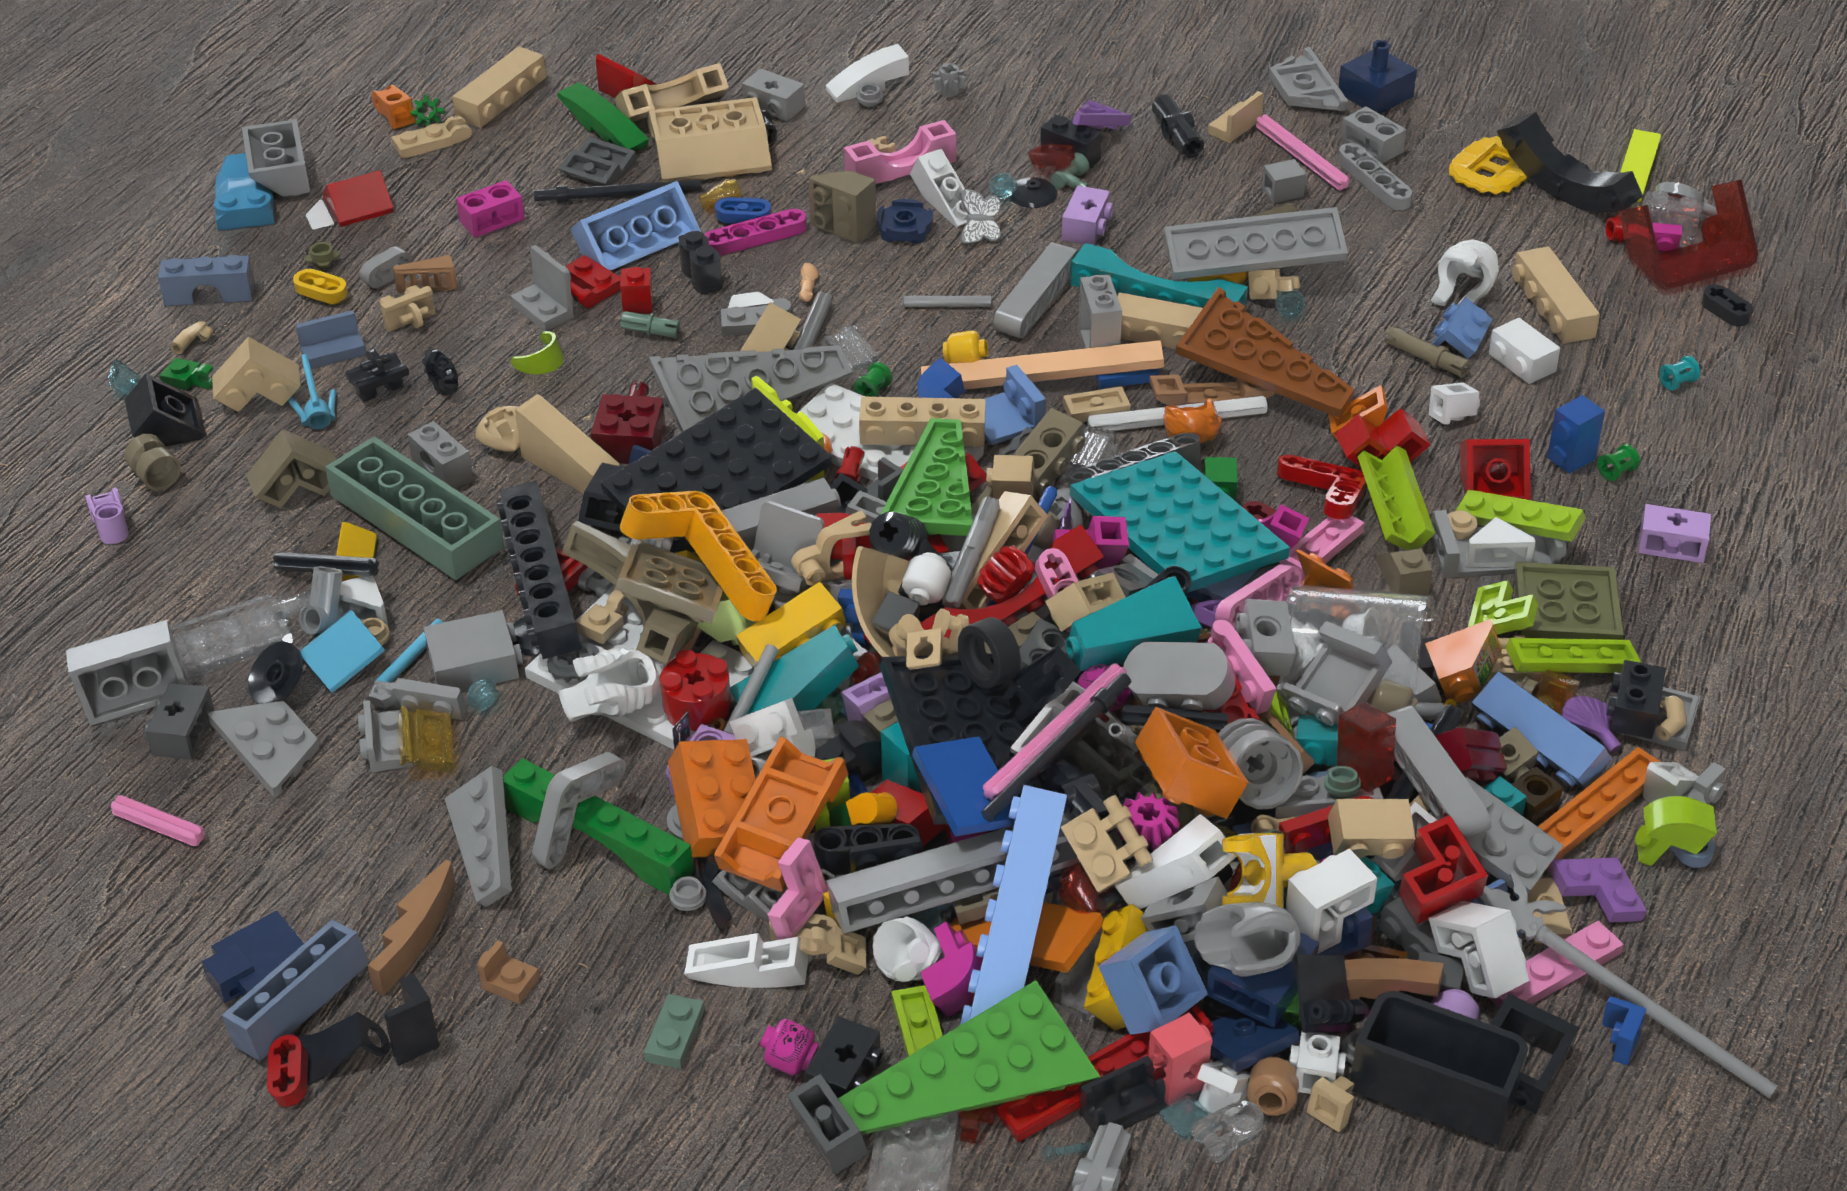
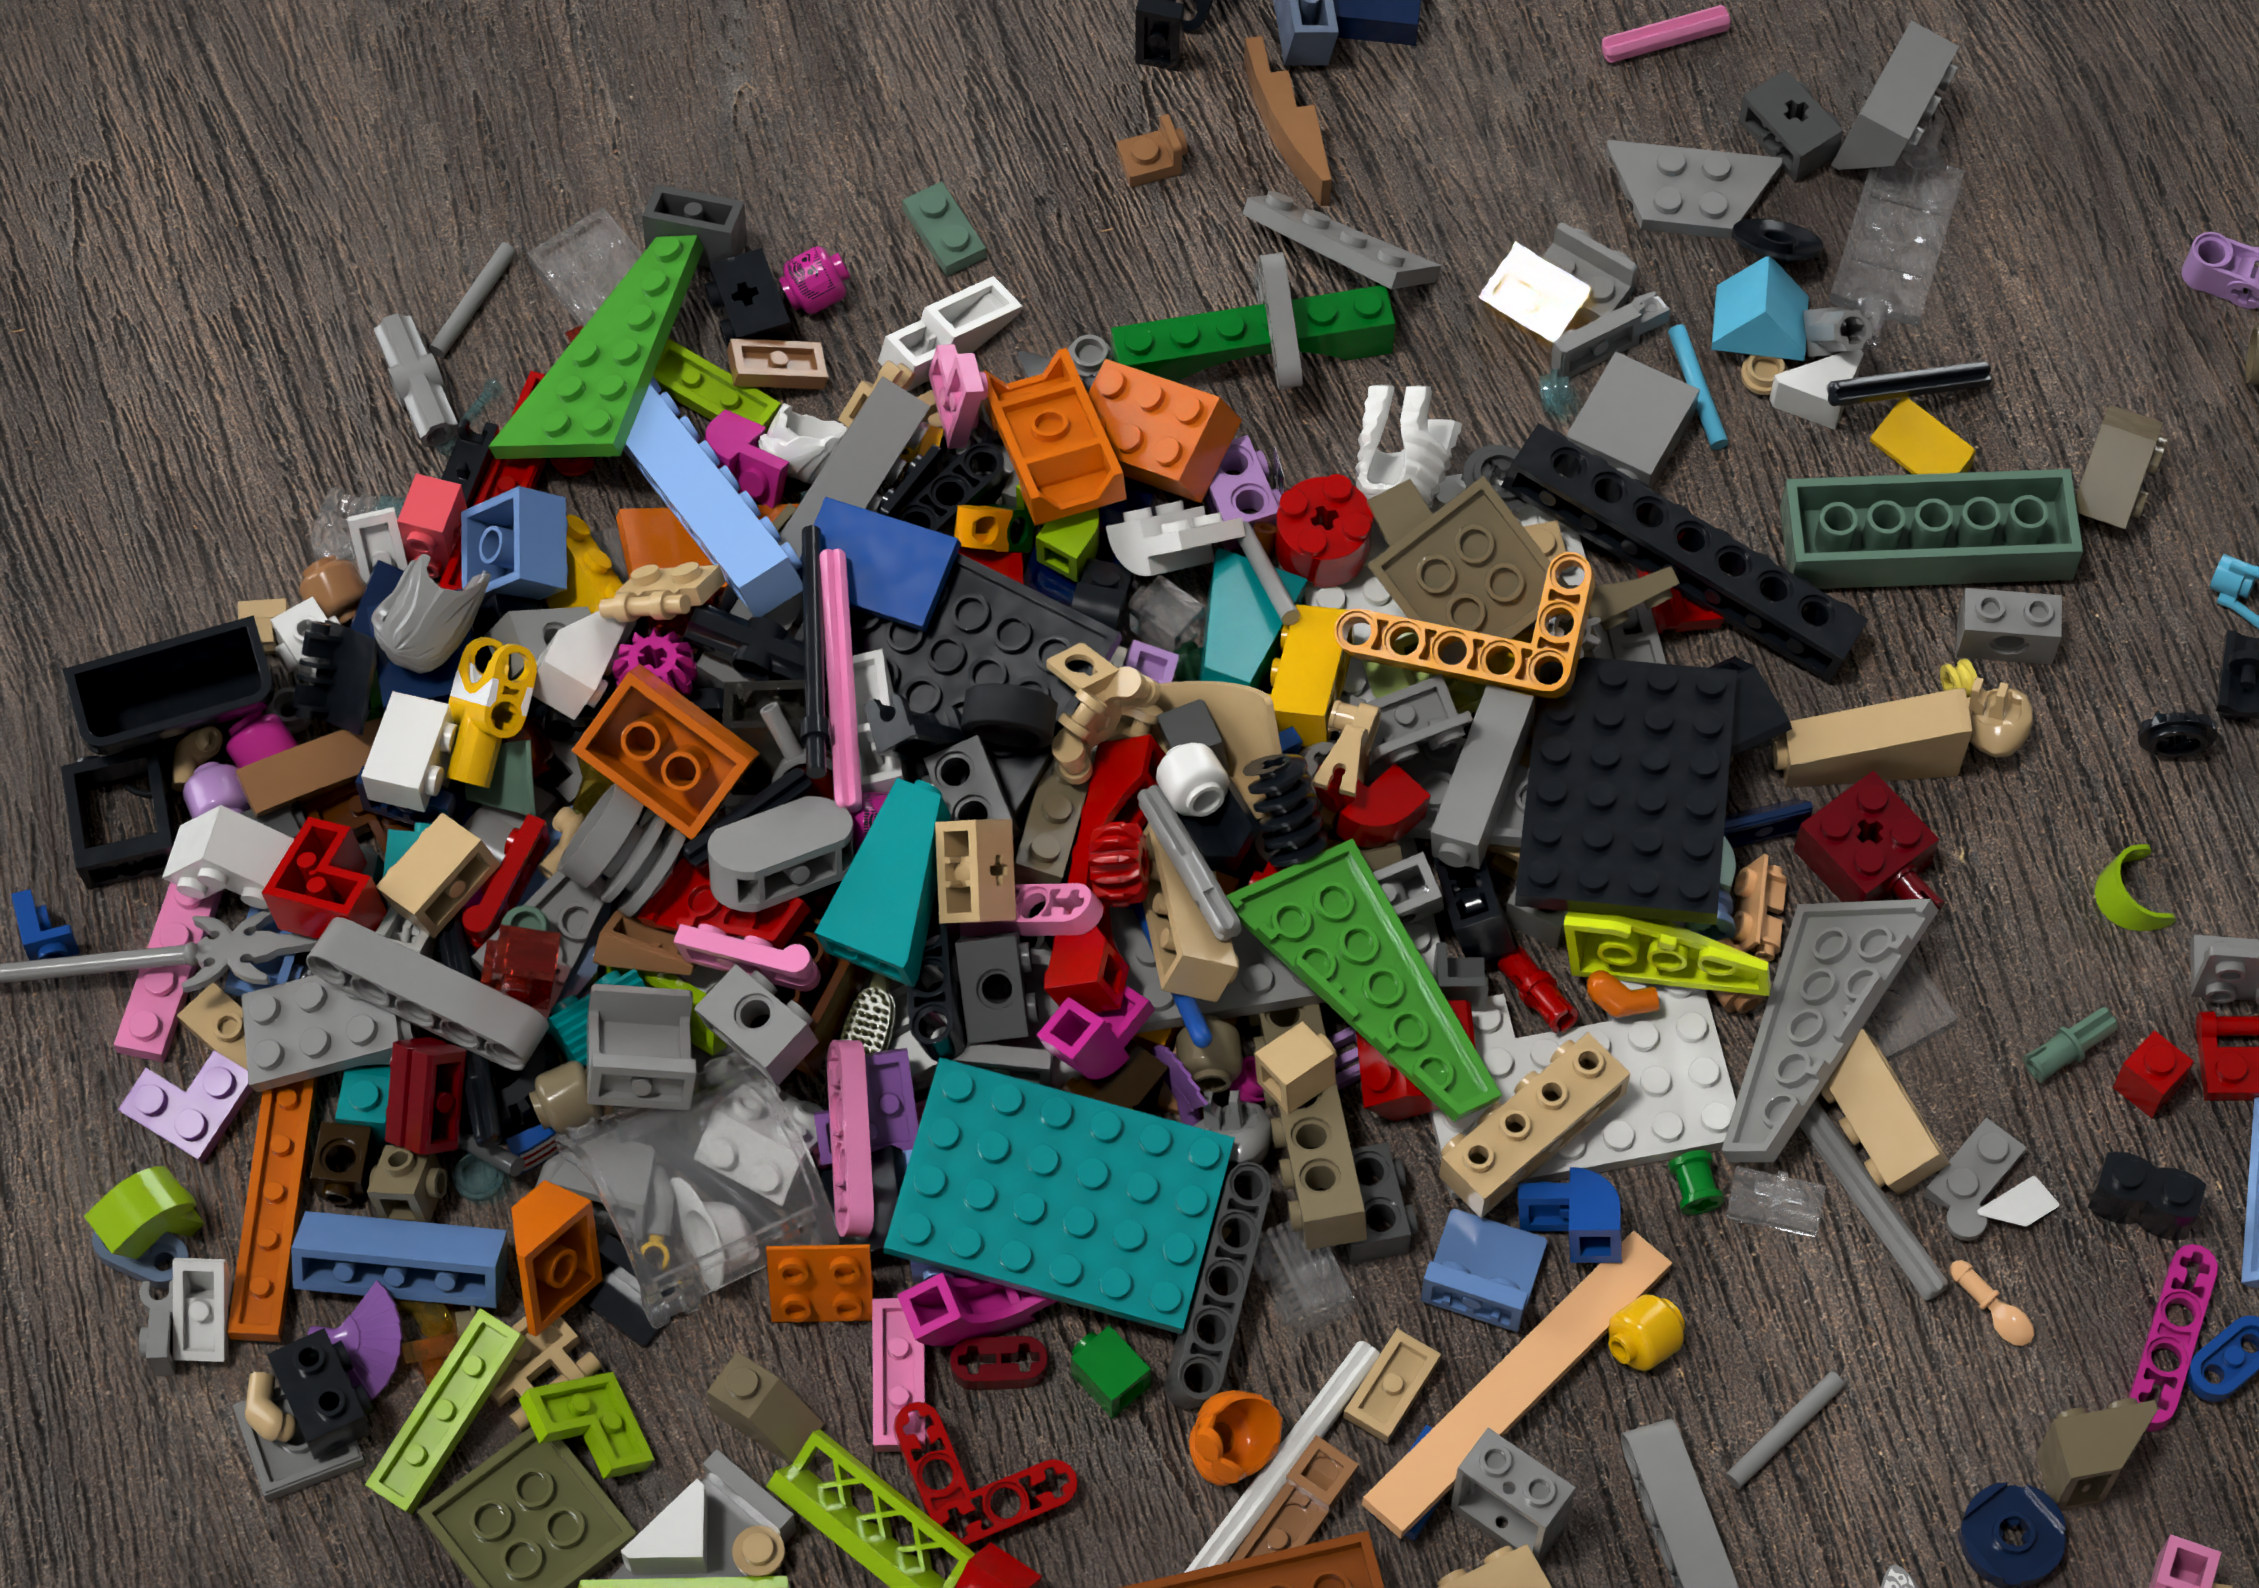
camera: 135 degrees right, 20 degrees up
(492, 457) = (1958, 677): none -> light yellow bush
(871, 1011) = (777, 364): none -> medium nougat plate

